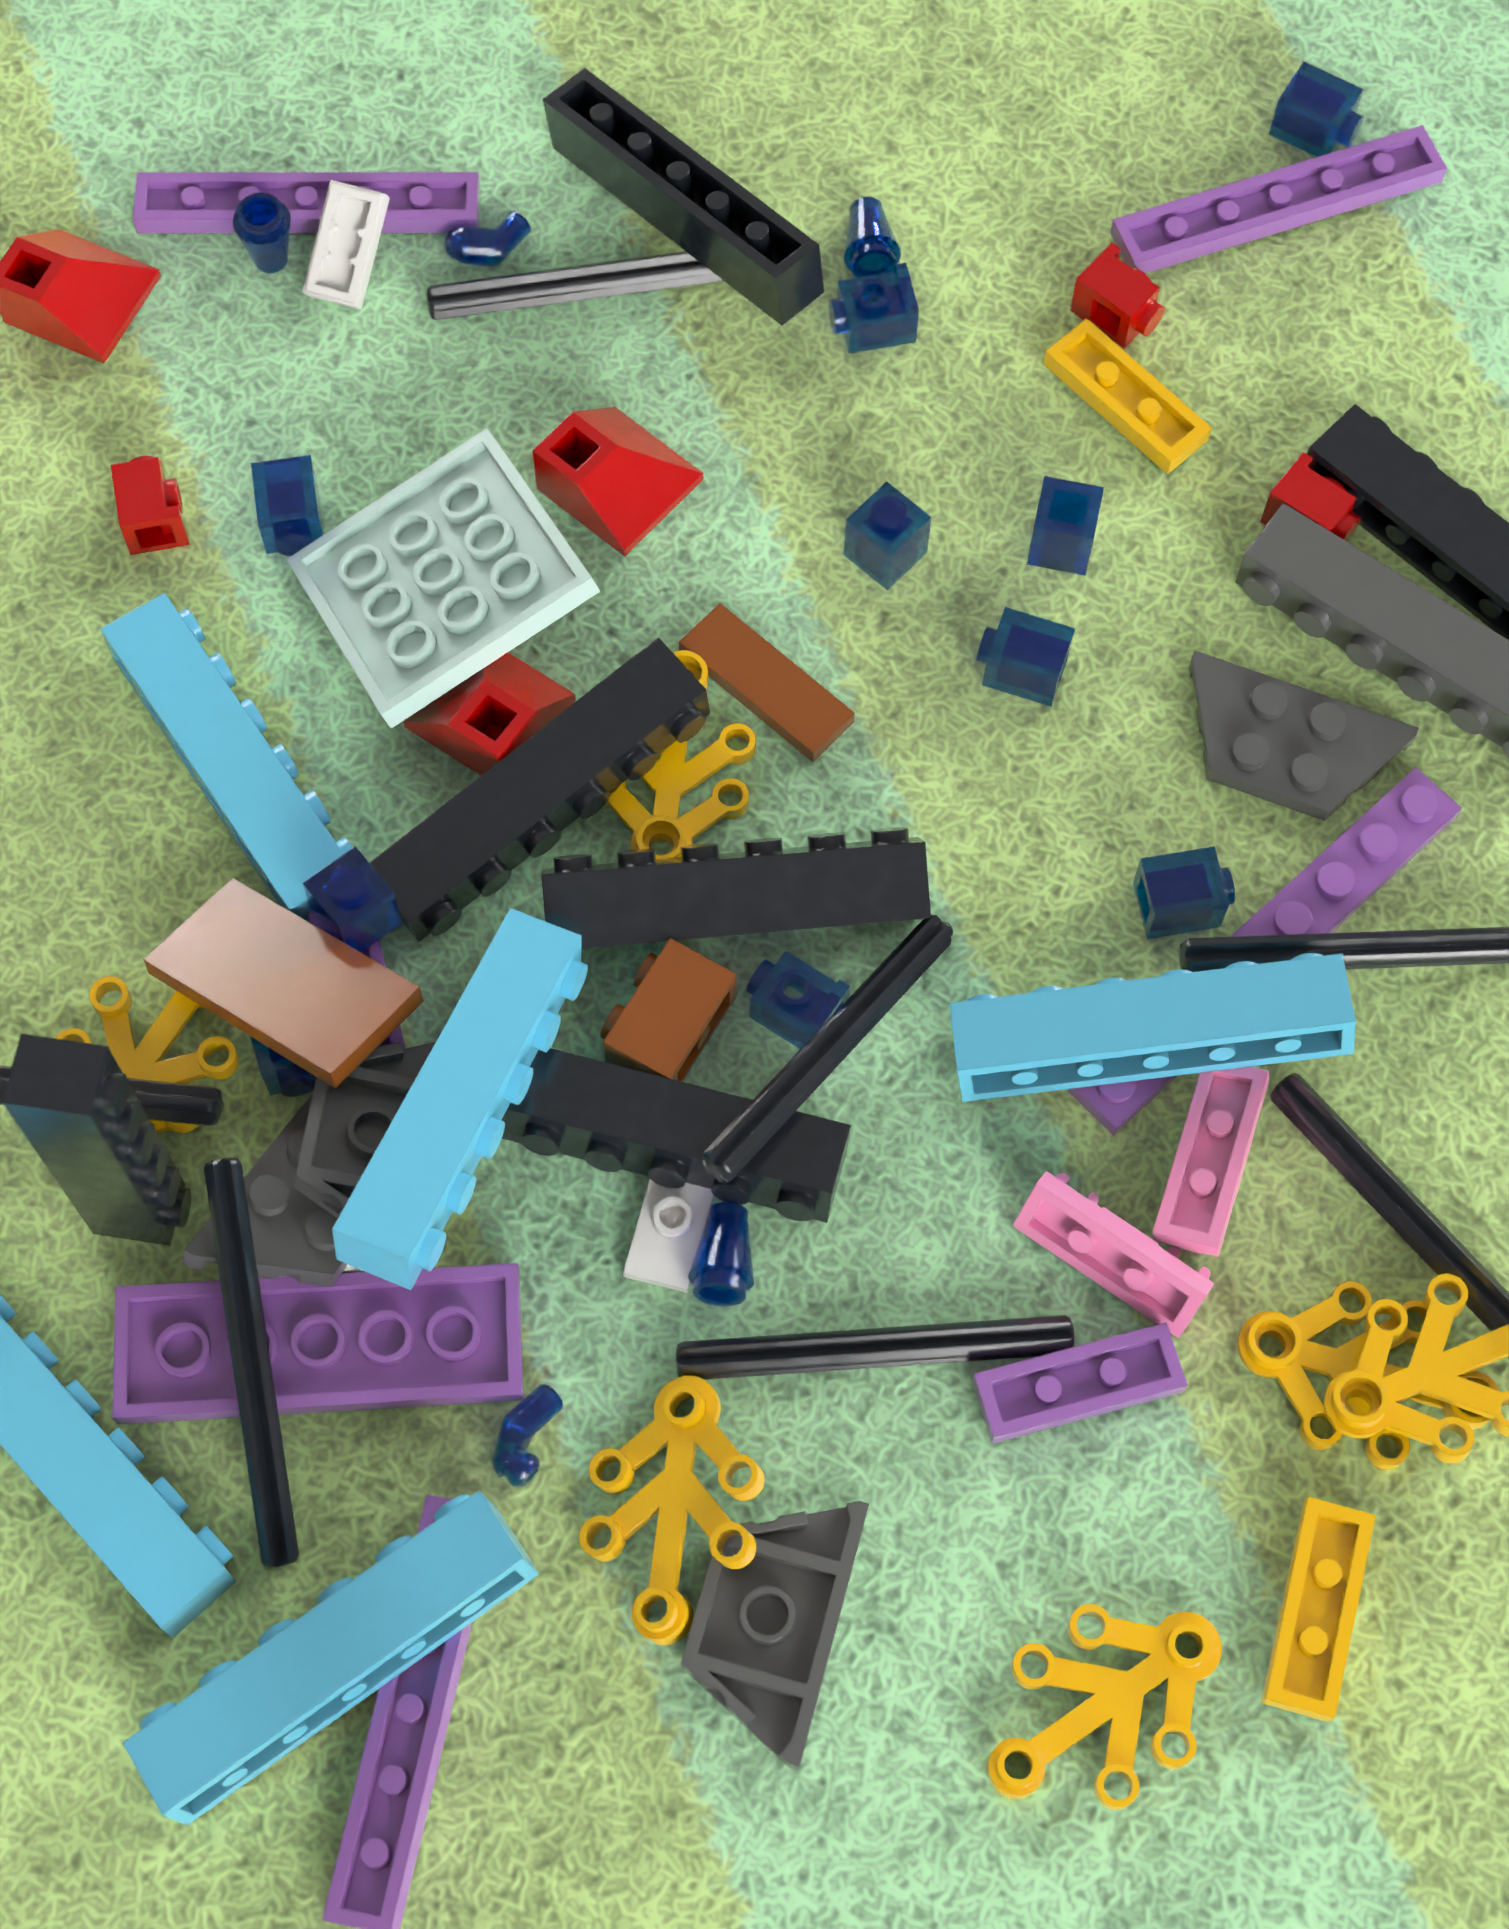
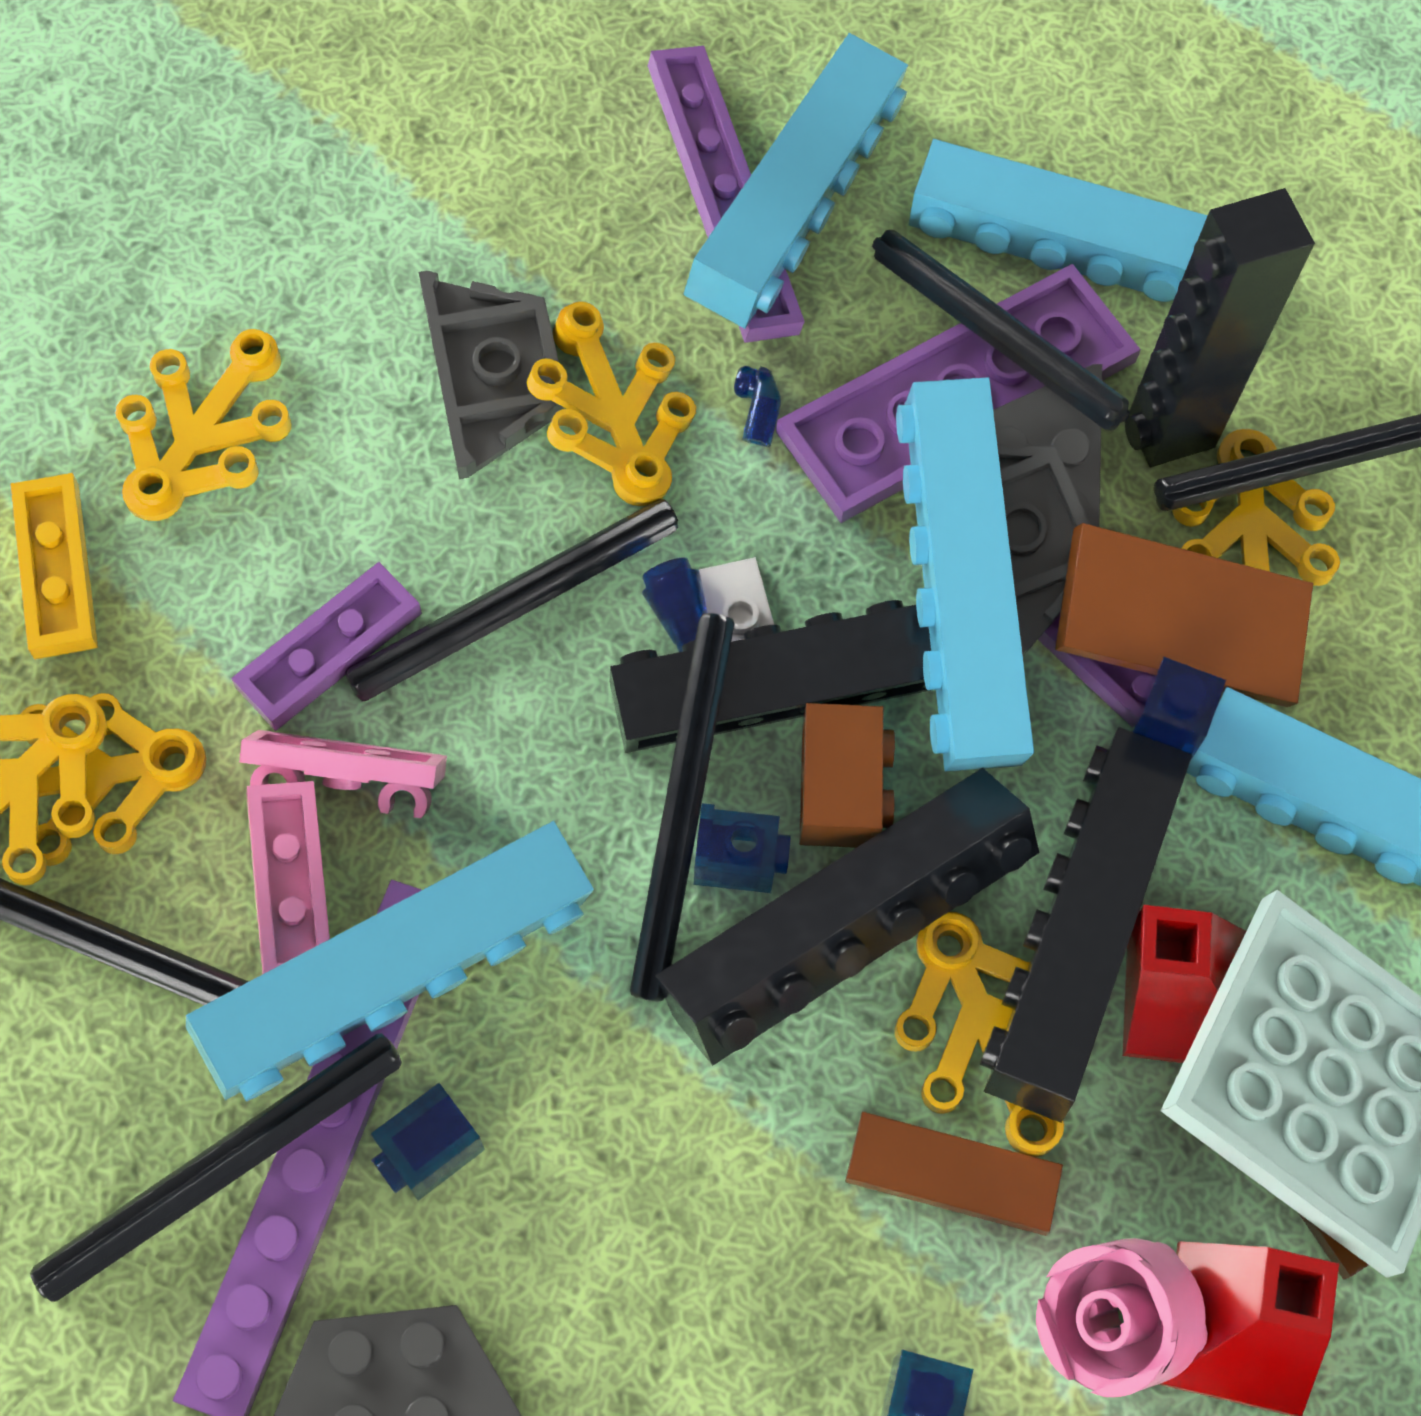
camera: 150 degrees right, 0 degrees up
(711, 504) = (1159, 1311): none -> bright pink brick
(1025, 655) = (708, 1333): brick -> none

